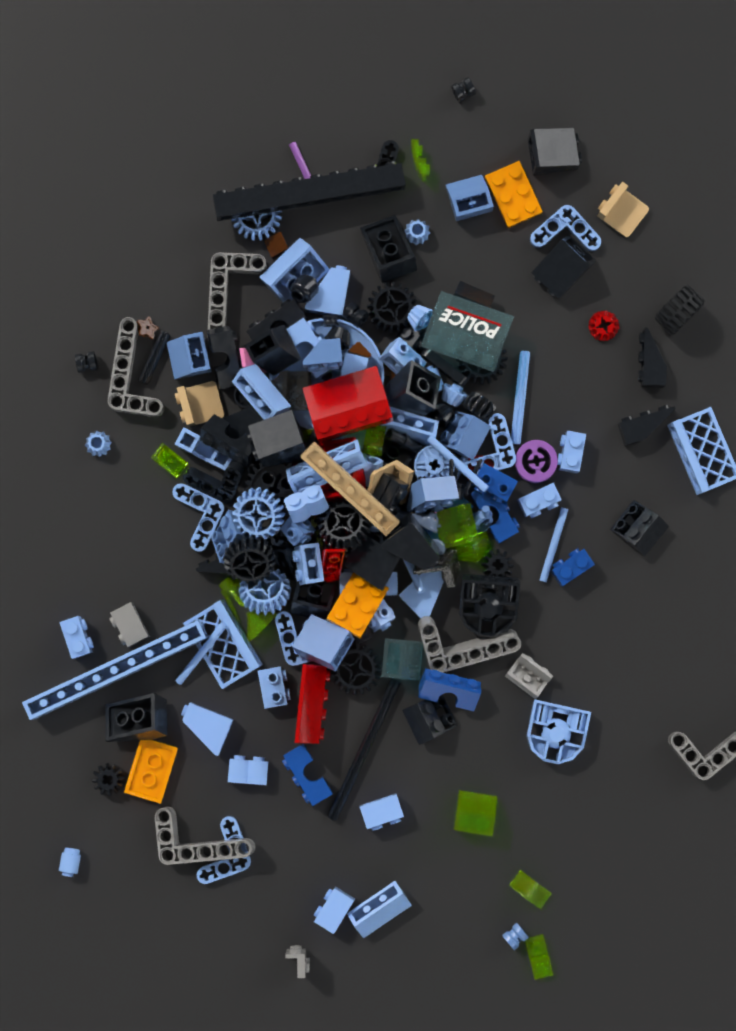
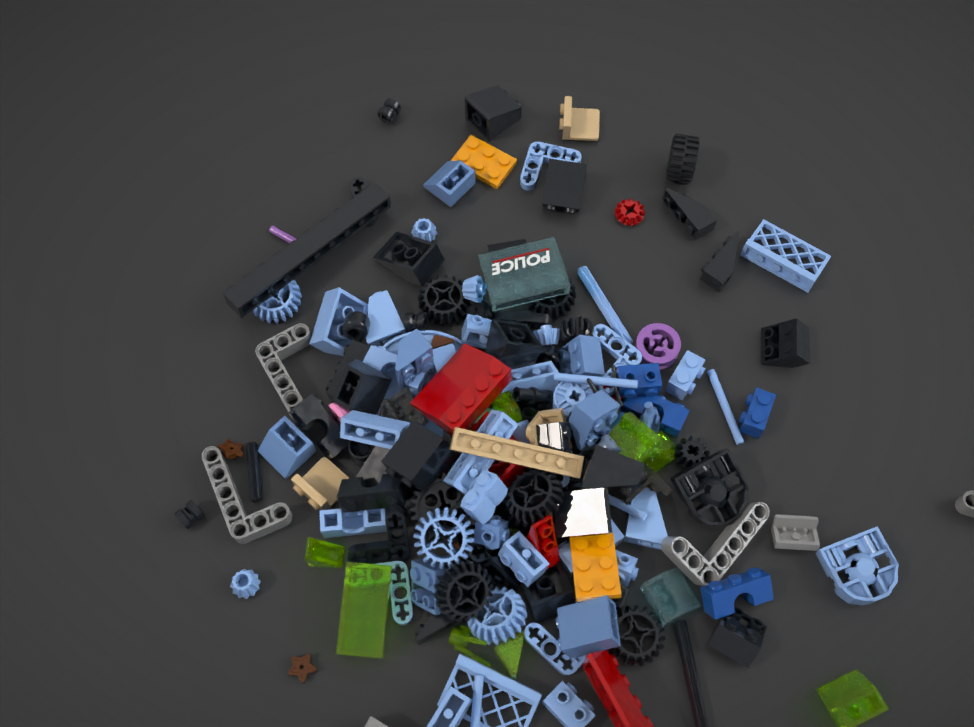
camera: 30 degrees left, 20 degrees down
(108, 533) = (301, 673): none -> reddish brown plate
(172, 523) = (364, 610): none -> clear neon green brick
(276, 244) = (308, 311): reddish brown slope -> none
(330, 321) = (395, 336): black bush -> none
(420, 163) = (388, 180): clear neon green slope -> none
(572, 451) = (682, 319): light blue brick -> none

